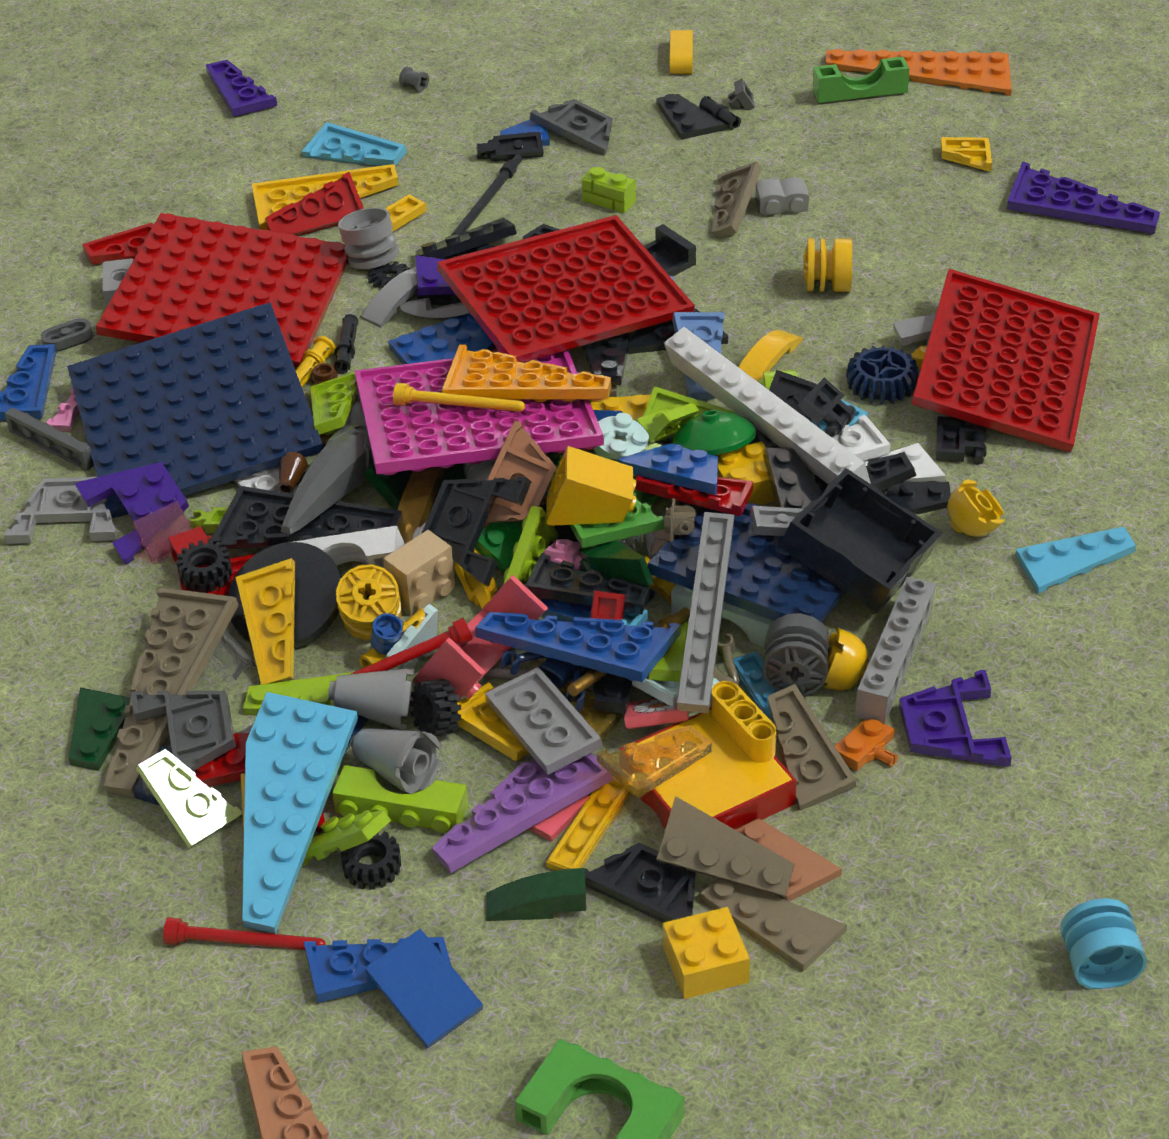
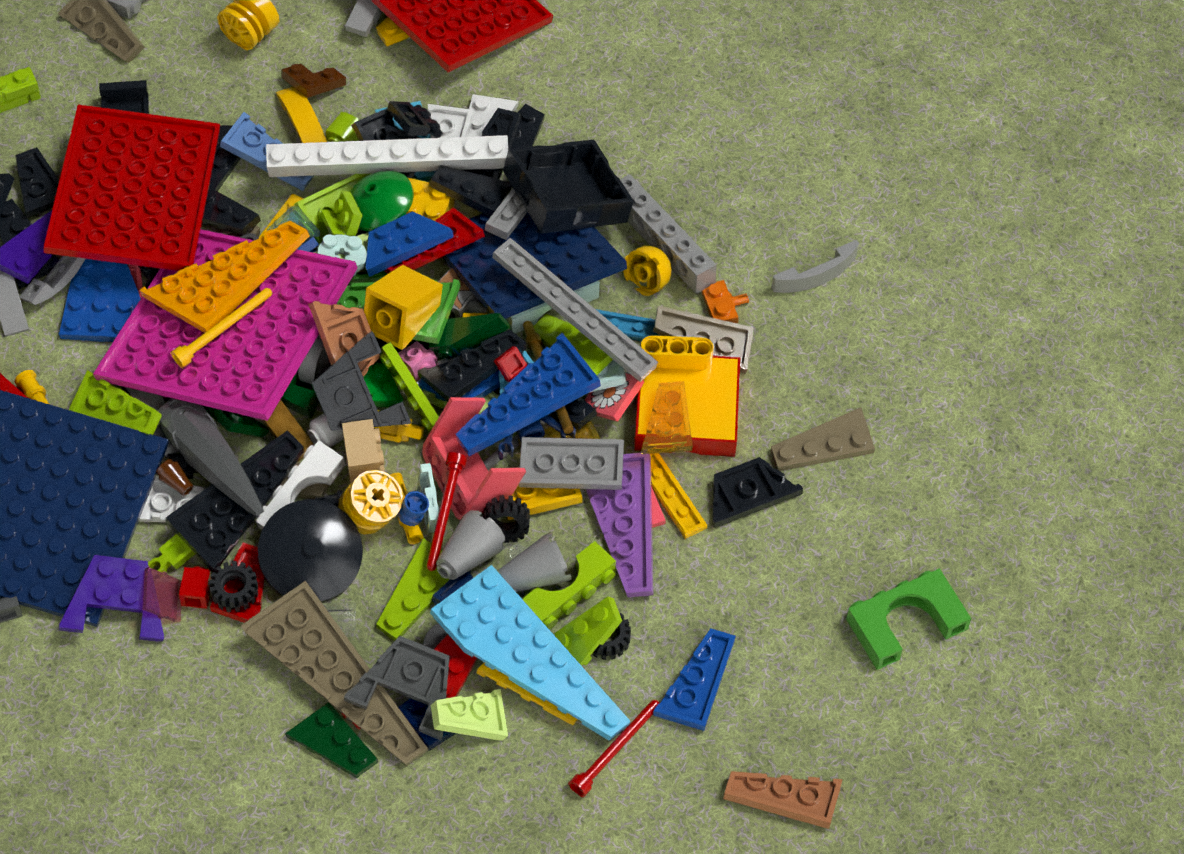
camera: 60 degrees left, 15 degrees up
(60, 502) = (54, 651): light grey wing -> none
(269, 615) = (330, 568): yellow wing -> none
(323, 372) = (60, 397): reddish brown plate -> none
(345, 348) = (42, 367): black pin -> none
(424, 988) = (746, 662): blue tile -> none
(538, 896) = (715, 556): dark green slope -> none
(631, 397) = (297, 216): none -> clear light blue slope
(679, 520) = (457, 269): dark tan hinge -> none
(706, 952) = (832, 492): yellow brick -> none
(716, 850) = (763, 435): dark tan wing -> none
(796, 653) = (632, 288): dark grey wheel -> none
(809, 338) = (312, 83): none -> reddish brown plate
(809, 869) = (781, 407): nougat wing -> none
(882, 374) = (384, 73): dark blue gear -> none
(939, 726) = (738, 254): dark purple wing -> none
(952, 443) = (488, 76): black plate -> none
(974, 511) = (573, 110): yellow cylinder -> none
(987, 802) = (792, 281): none -> light grey slope
(1062, 559) = (648, 90): medium azure wing -> none
(1103, 944) = (981, 290): medium azure wheel -> none

